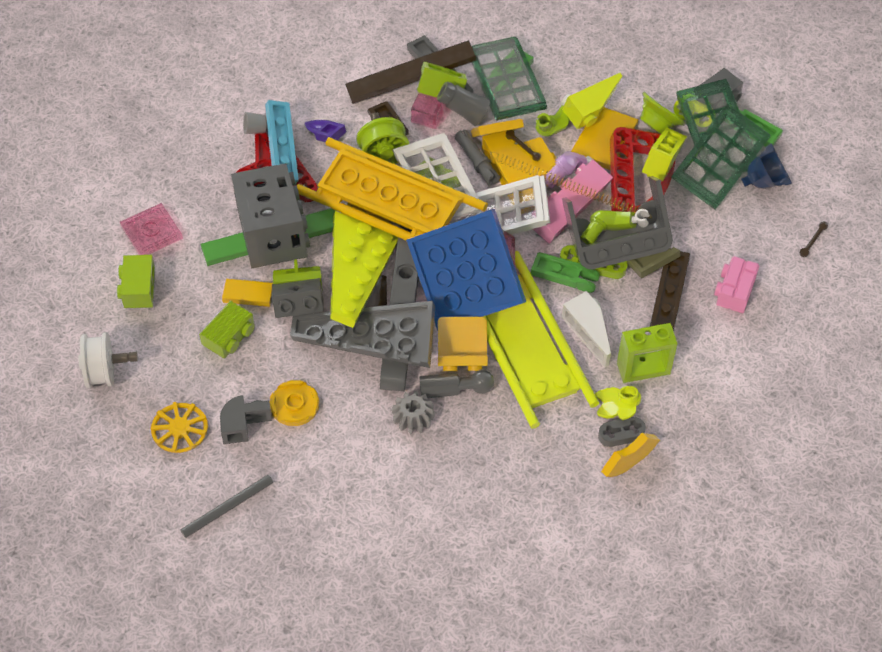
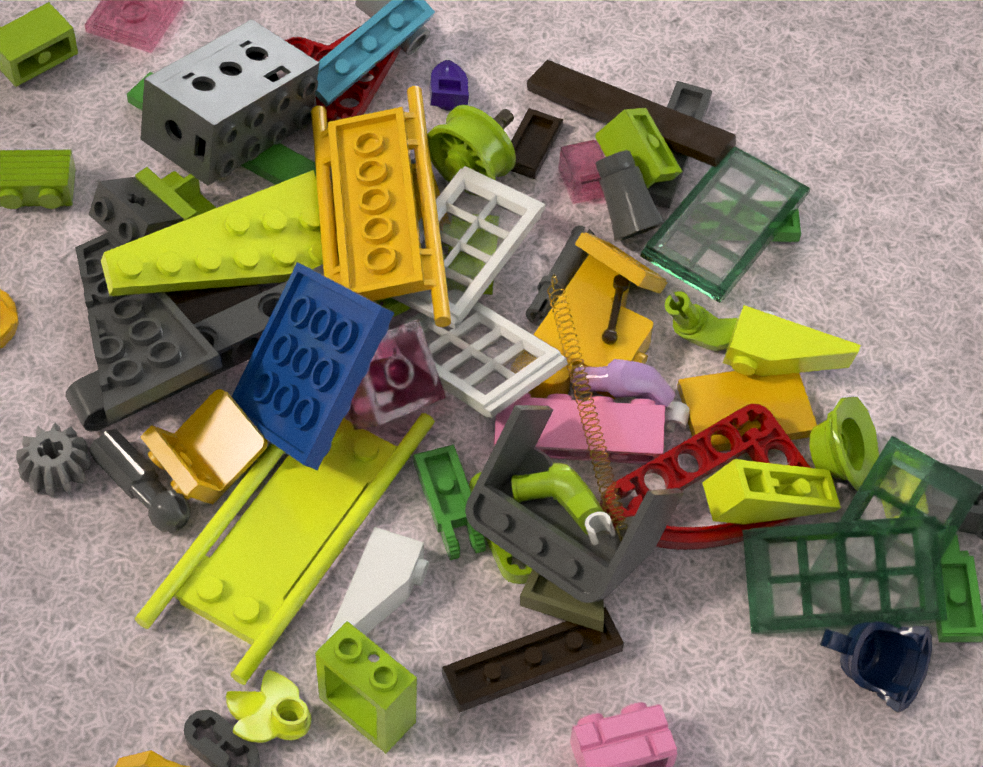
camera: 50 degrees right, 0 degrees up
(247, 292) = (111, 156): yellow tile -> none

